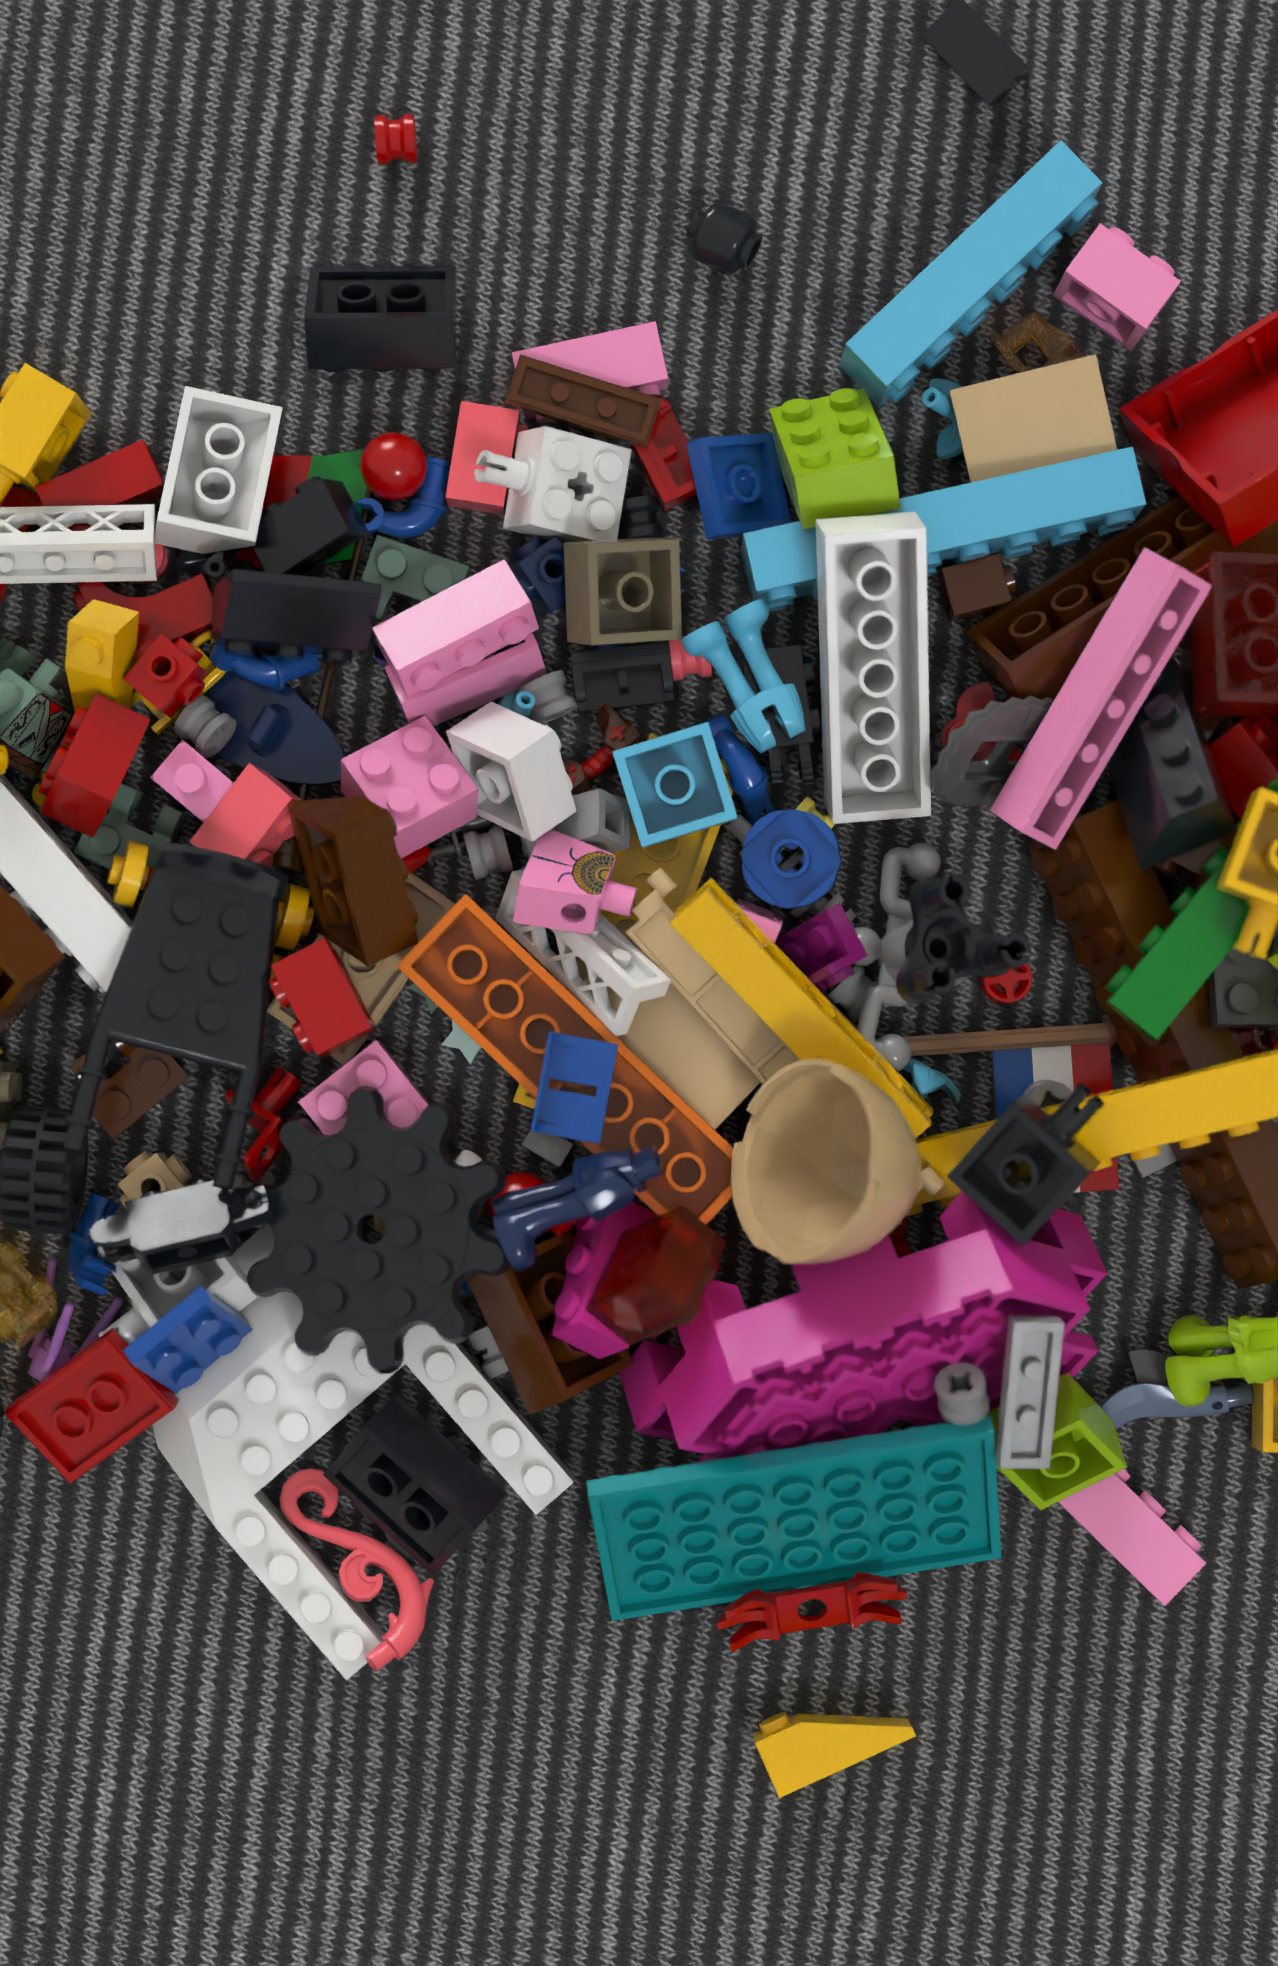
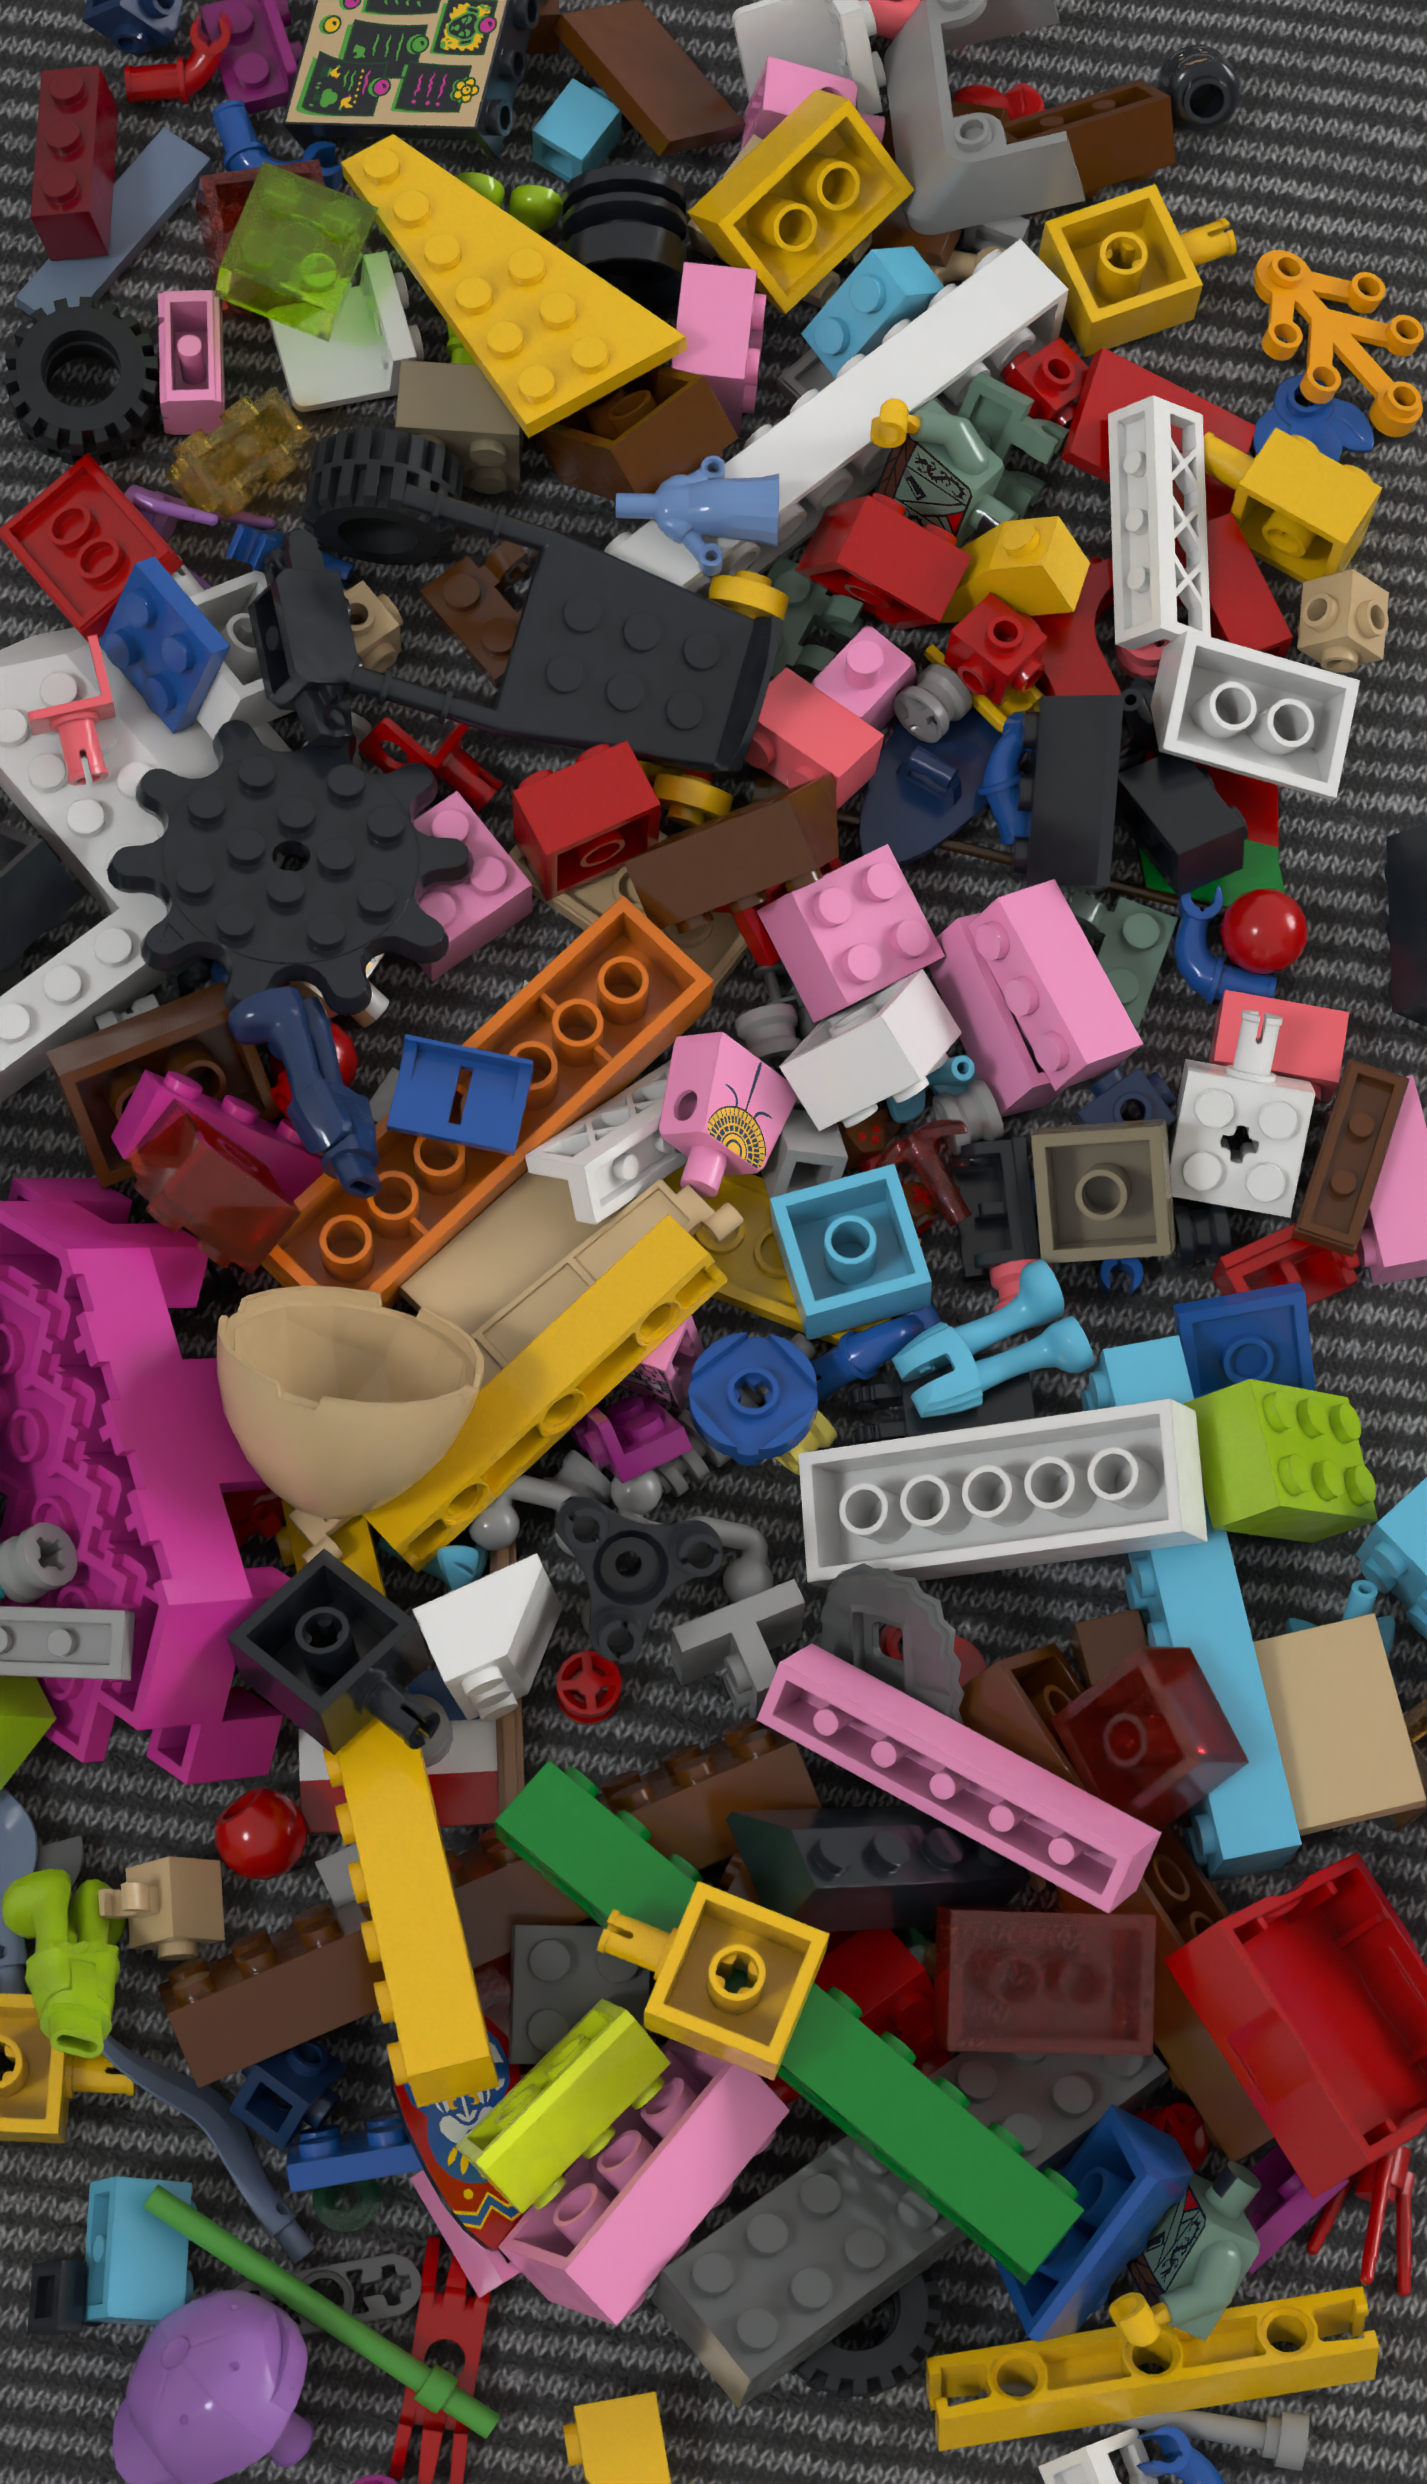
camera: 90 degrees right, 15 degrees down
(66, 895) = (709, 507): none -> medium blue piece
(124, 399) = (1343, 621): none -> tan brick
(261, 1404) = (77, 726): none -> coral bracket
(583, 735) = (922, 1151): none -> clear red plant
(974, 865) = (740, 1641): none -> light grey bracket
(1001, 1055) = (492, 1636): none -> white slope
(1064, 556) = (1151, 1736): none -> clear red brick
(1127, 1218) = (261, 1834): none -> red piece
(1185, 1282) = (169, 1906): none -> tan brick

